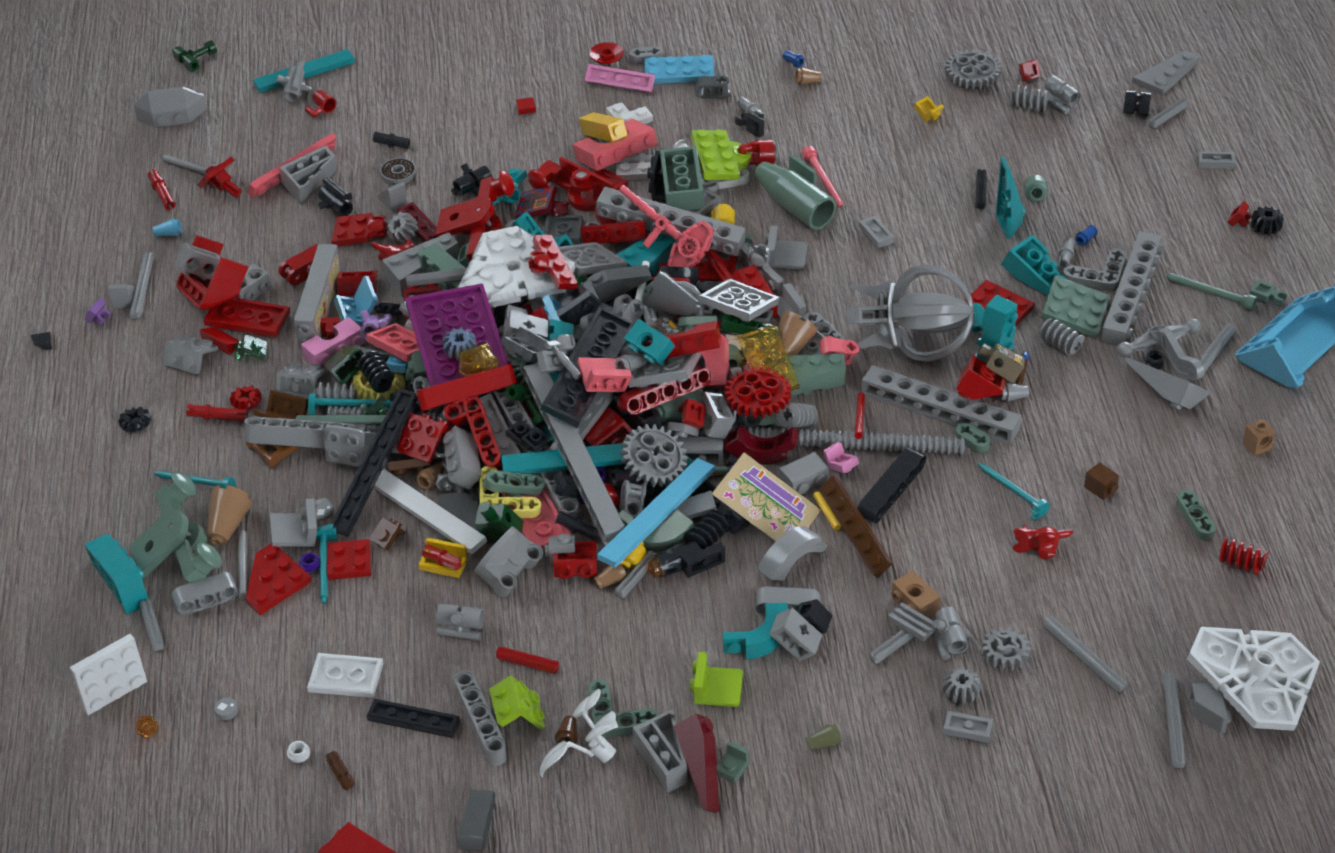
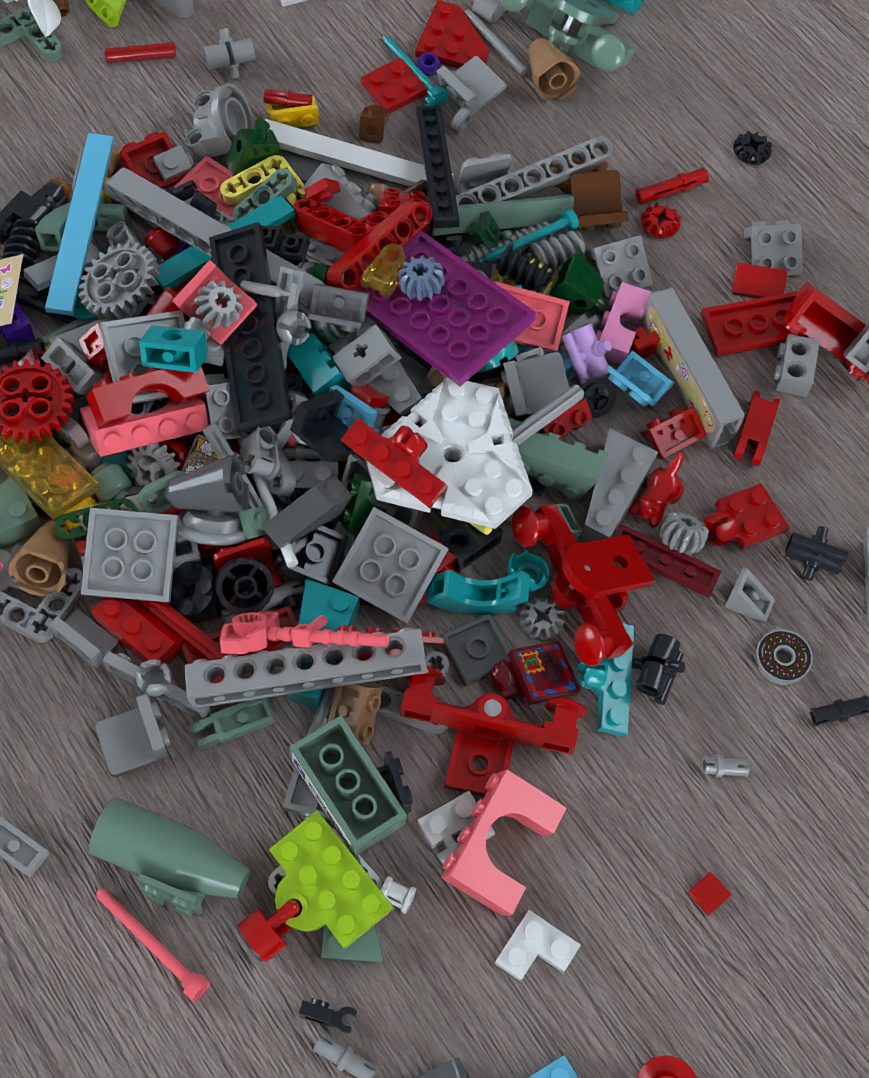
camera: 145 degrees right, 20 degrees up
(201, 480) = (579, 102): teal piece -> none
(251, 346) = (711, 281): clear green bracket -> none
(474, 141) = (725, 766): none -> light grey pin
(474, 449) = (322, 190): none -> red plate
(603, 126) = (540, 858): yellow brick -> none
(604, 354) = (225, 297): none -> light grey gear
(620, 78) = (603, 1030): bright pink plate -> none
(723, 213) = (258, 765): yellow head -> none

